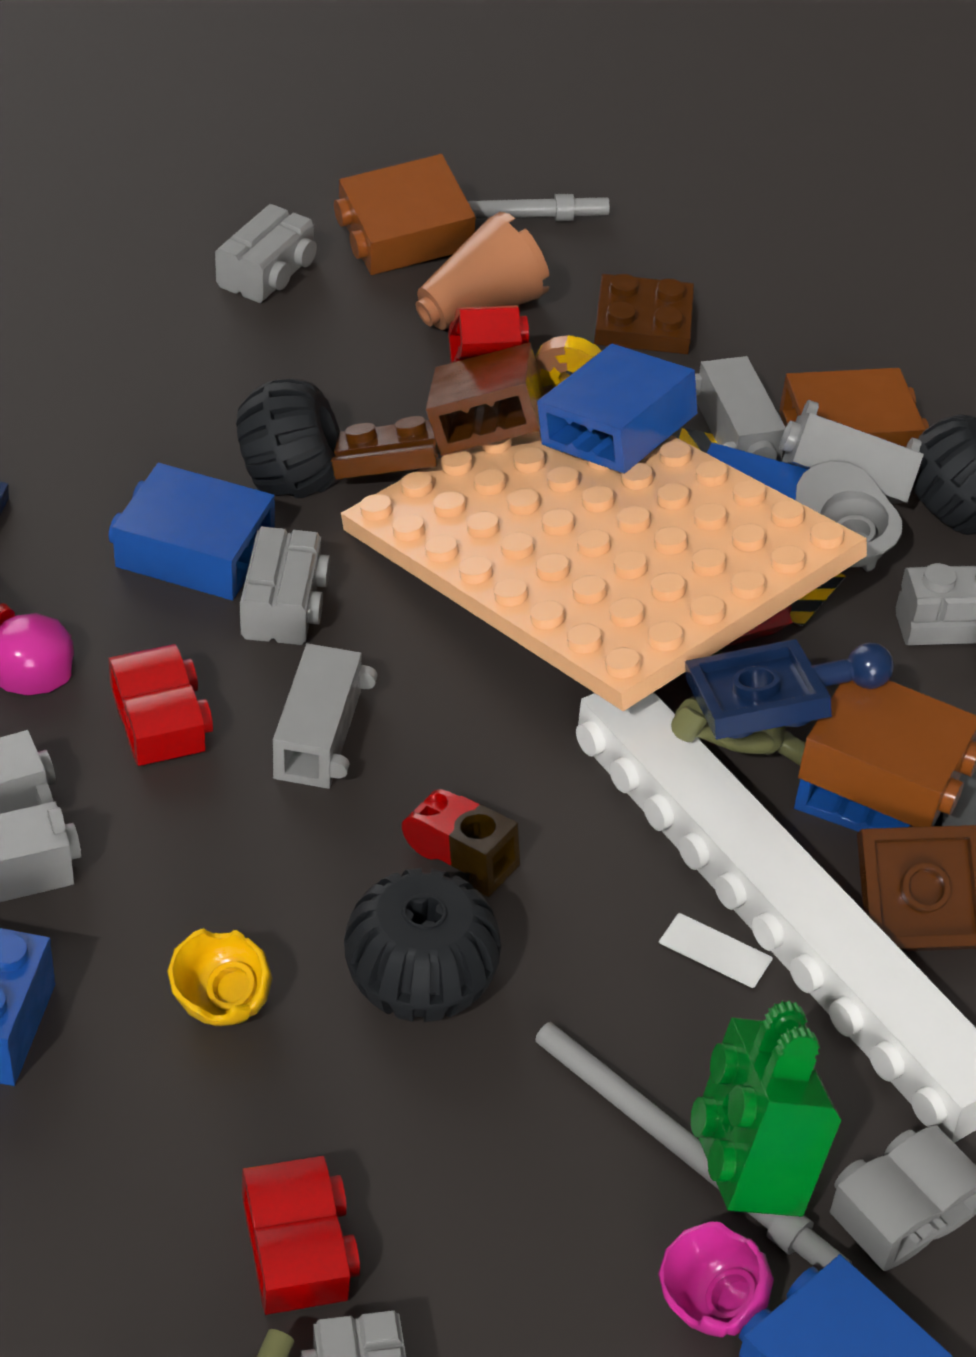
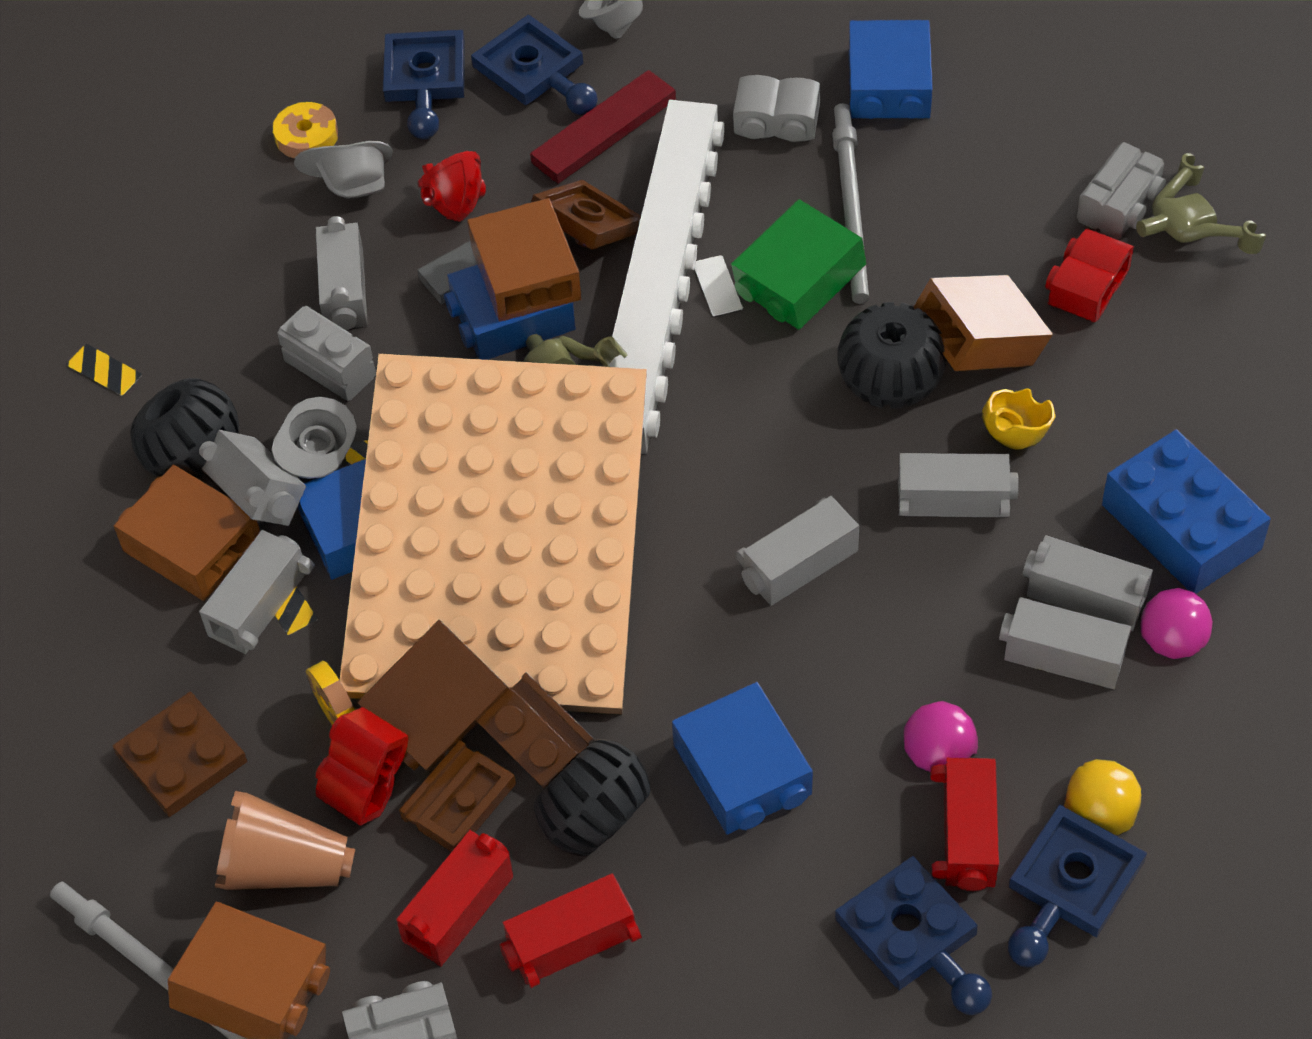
camera: 130 degrees left, 10 degrees up
(159, 704) = (893, 628): red brick -> none
(208, 361) = (568, 930): none -> red brick
(223, 869) = (956, 485): none -> light grey brick
(282, 586) = (727, 662): light grey brick -> none
(320, 330) = (456, 897): none -> red brick
(354, 1041) = (984, 322): none -> brick
(394, 385) = (457, 796): none -> reddish brown plate
(465, 838) = (796, 413): leg -> none
(617, 407) = (376, 585): blue brick -> none
(640, 990) = (798, 264): none -> green brick
(715, 1279) = (911, 128): dark pink hair -> none
(766, 1114) = (824, 144): green hinge -> none
(777, 685) = (557, 289): dark blue plate -> none

